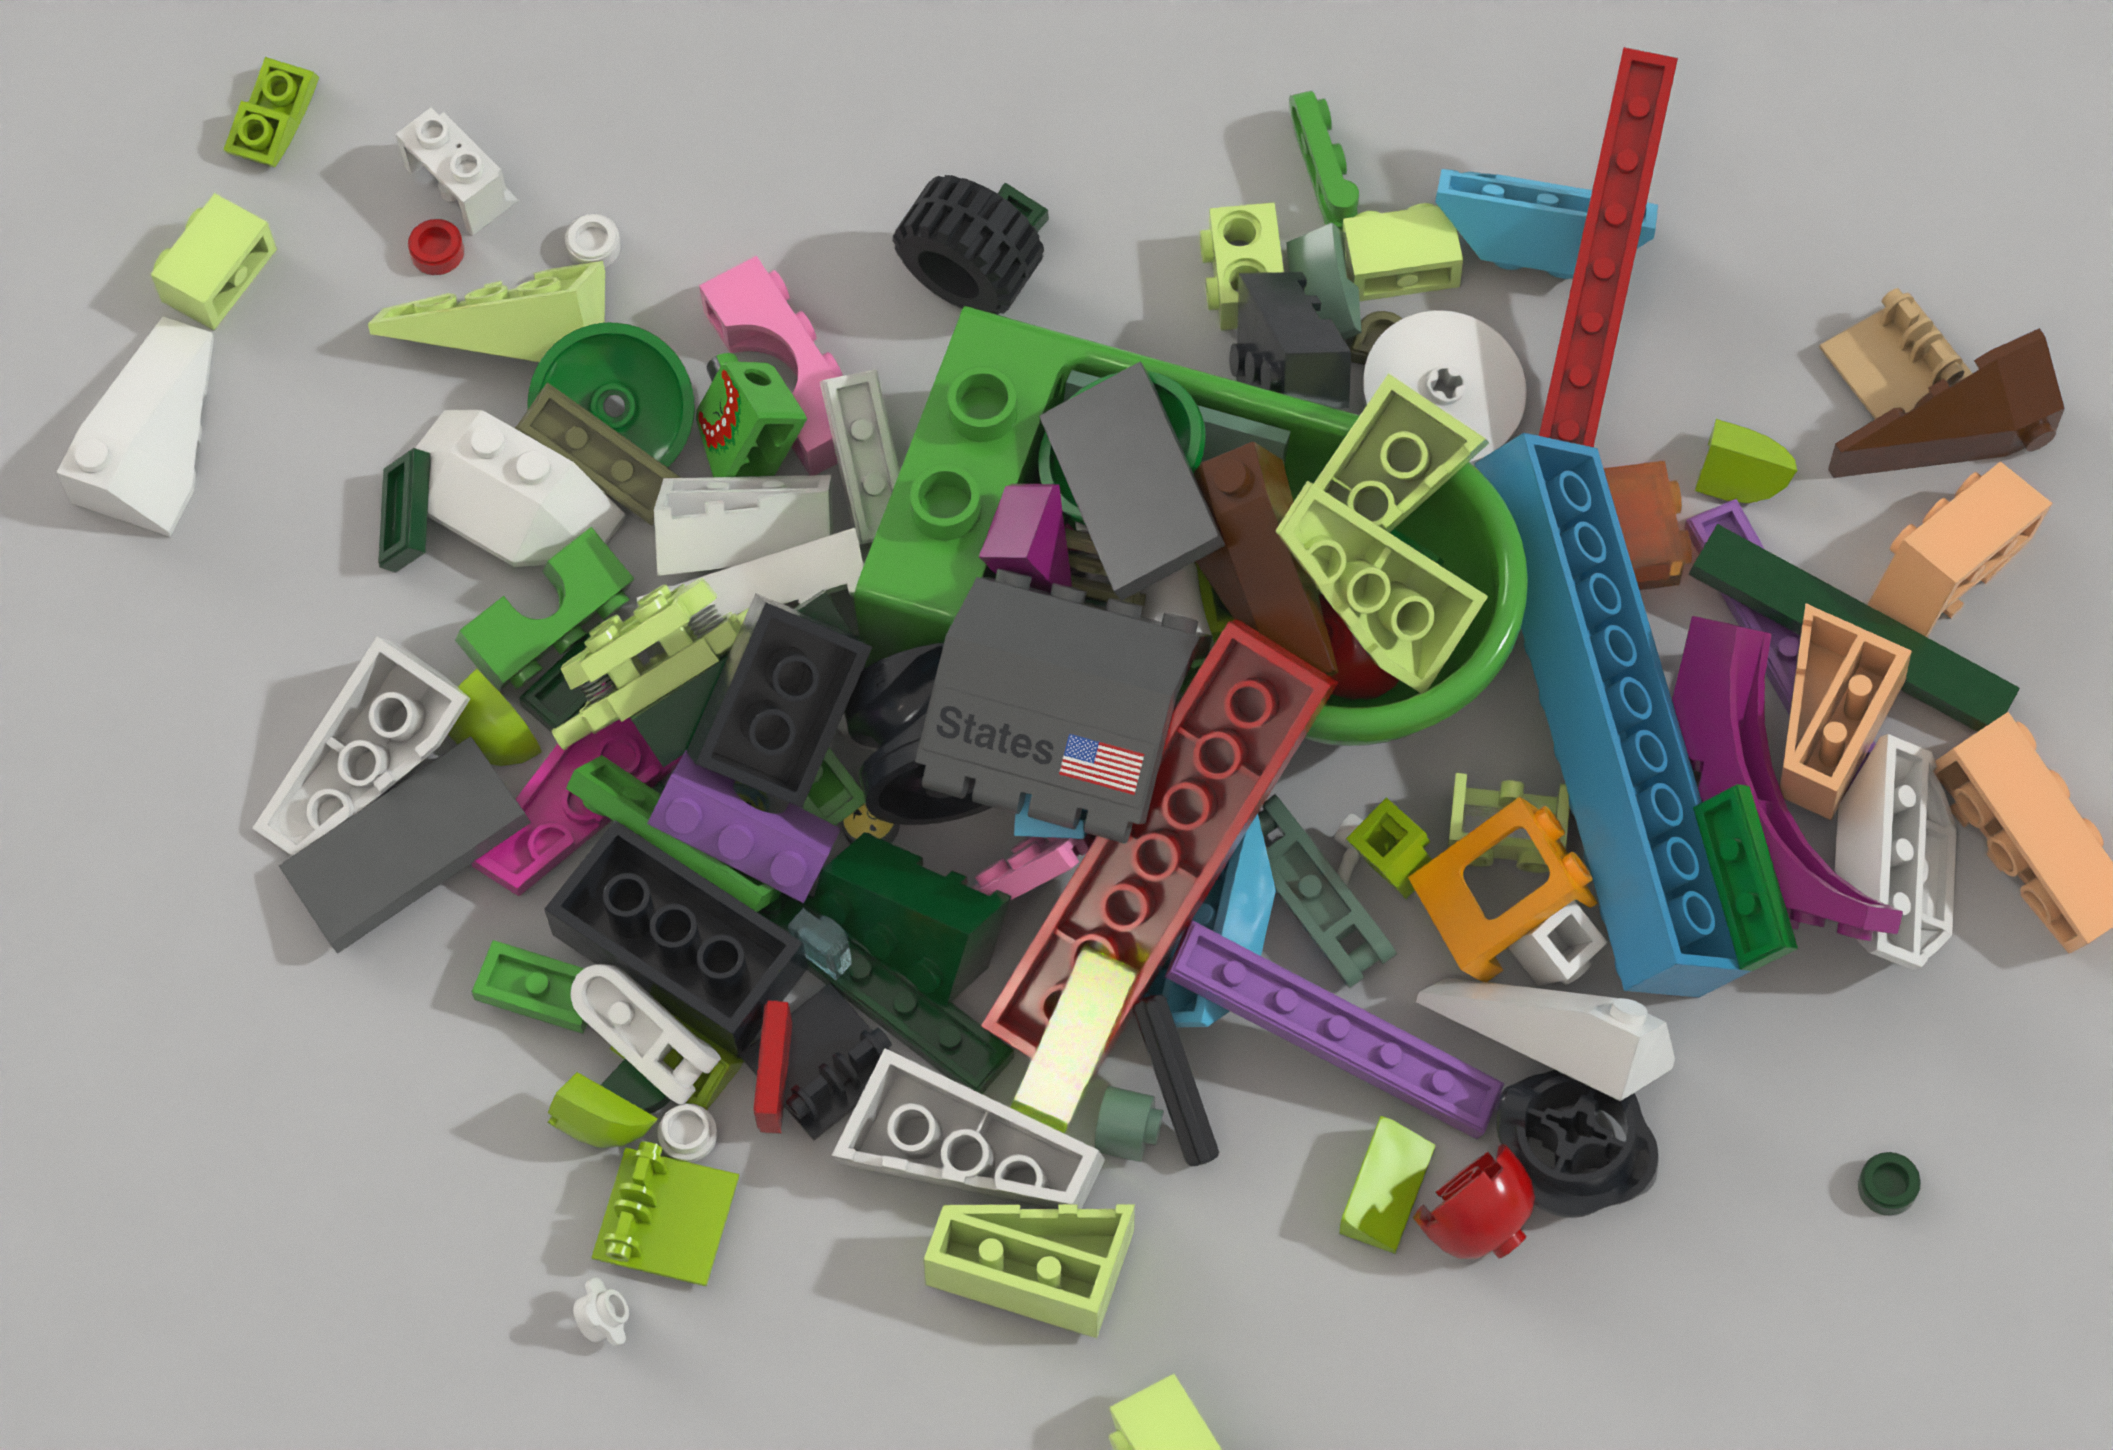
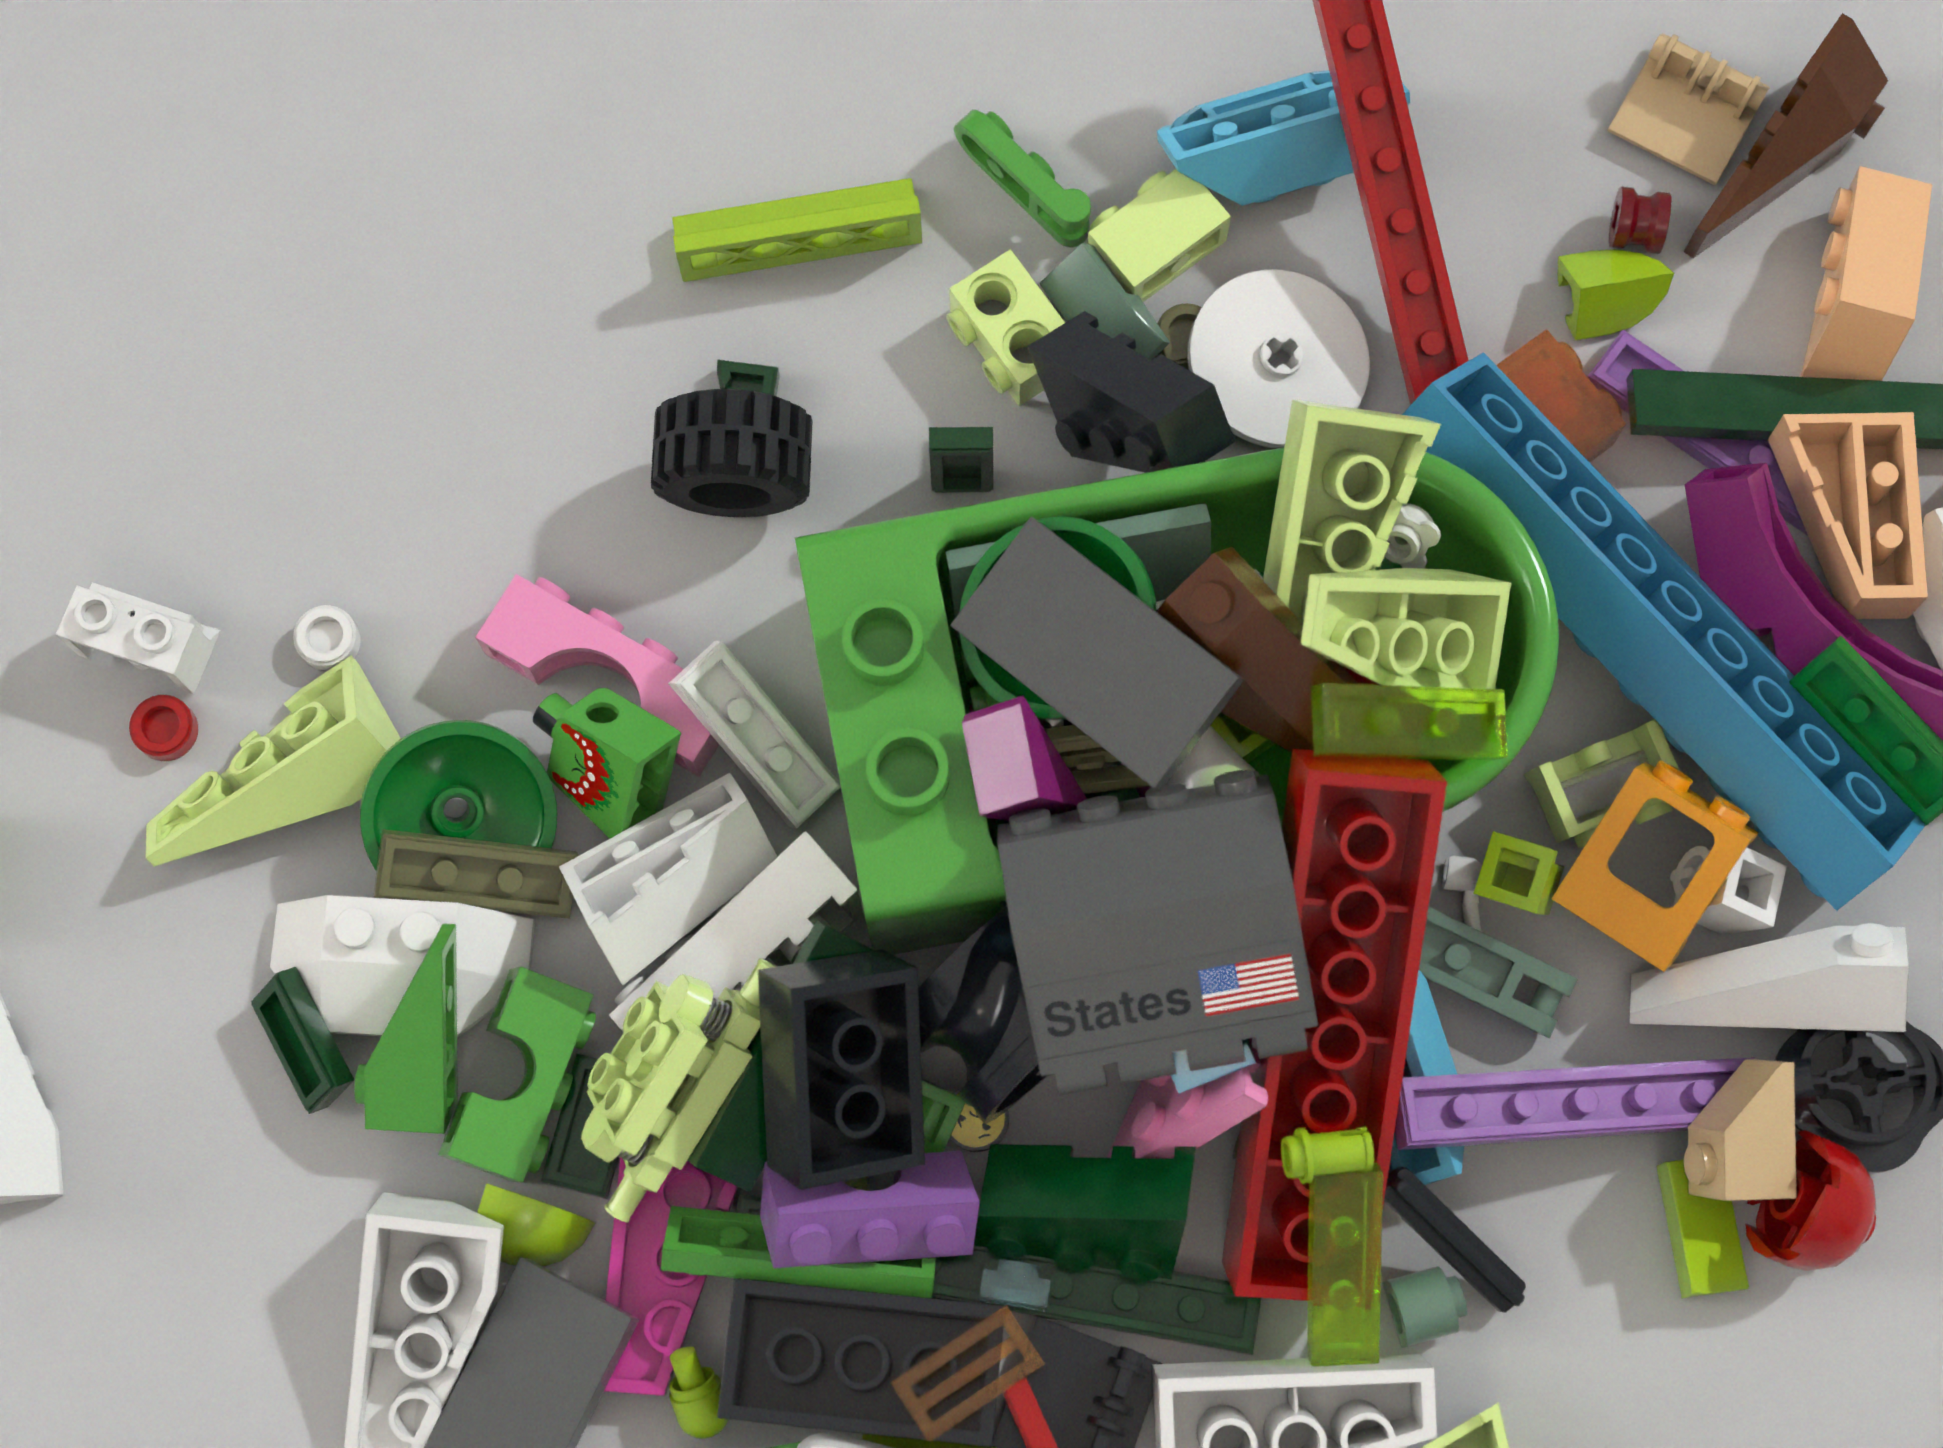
camera: 30 degrees left, 10 degrees up
(477, 555) = (414, 1067): none -> bright green slope
(533, 900) = (695, 1395): none -> lime cylinder
(747, 991) = (919, 1406): none -> clear orange tile
(1100, 935) = (1326, 1153): none -> lime pin
(1123, 118) = (797, 229): none -> lime fence
(1142, 327) = (961, 459): none -> dark green tile
(1338, 644) = (1408, 722): none -> clear neon green tile
(1435, 532) = (1419, 534): none -> white plate
(1448, 1125) = (1746, 1136): none -> tan slope
(1799, 422) = (1640, 220): none -> dark red wheel

